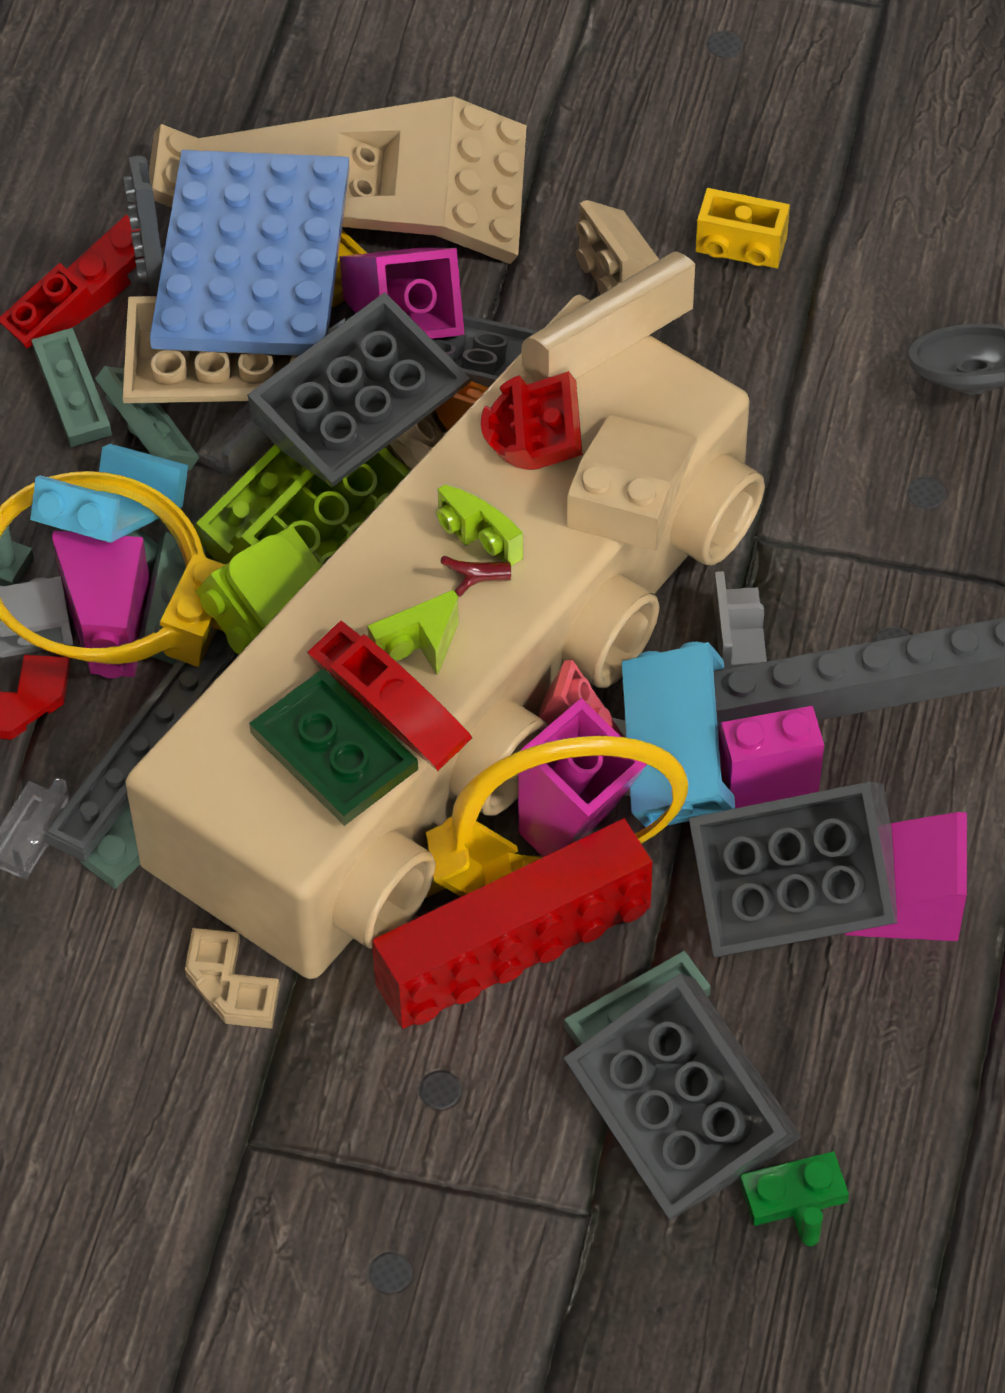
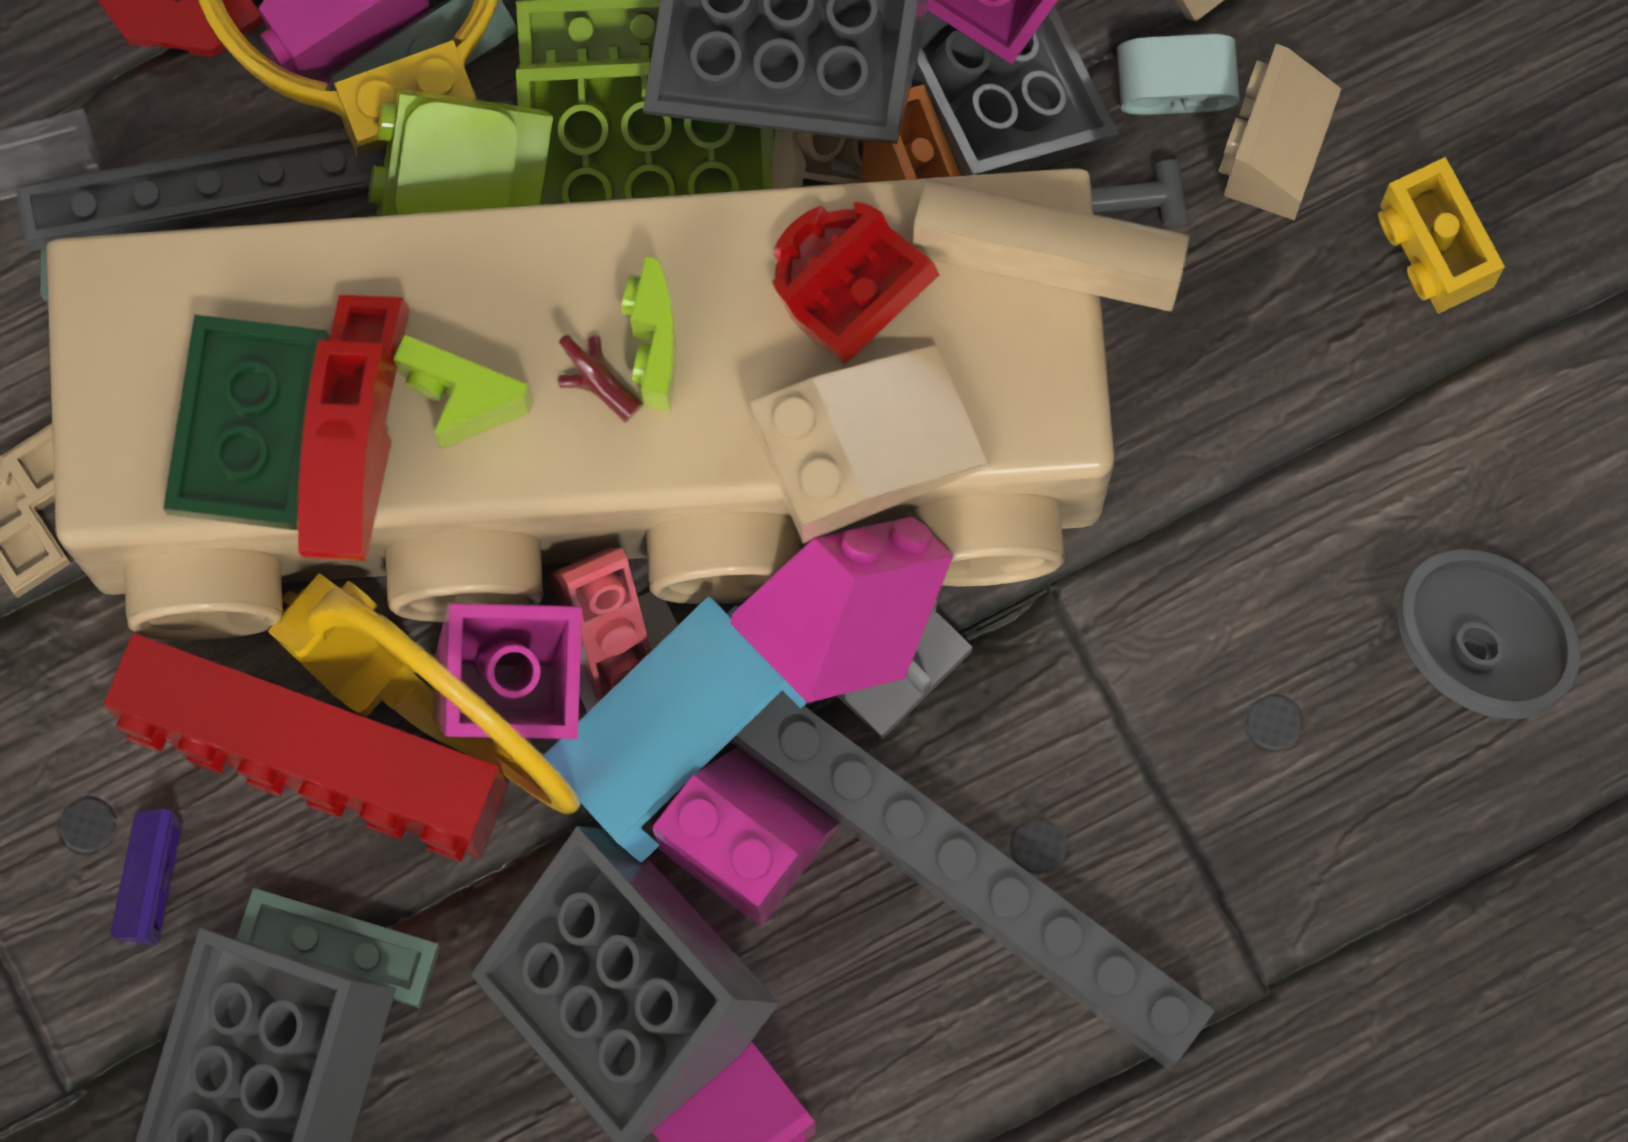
camera: 50 degrees right, 20 degrees up
(503, 1073) = (147, 877): none -> dark purple slope
(539, 280) = (1178, 74): none -> light aqua beam
(697, 583) = (847, 608): none -> dark pink slope

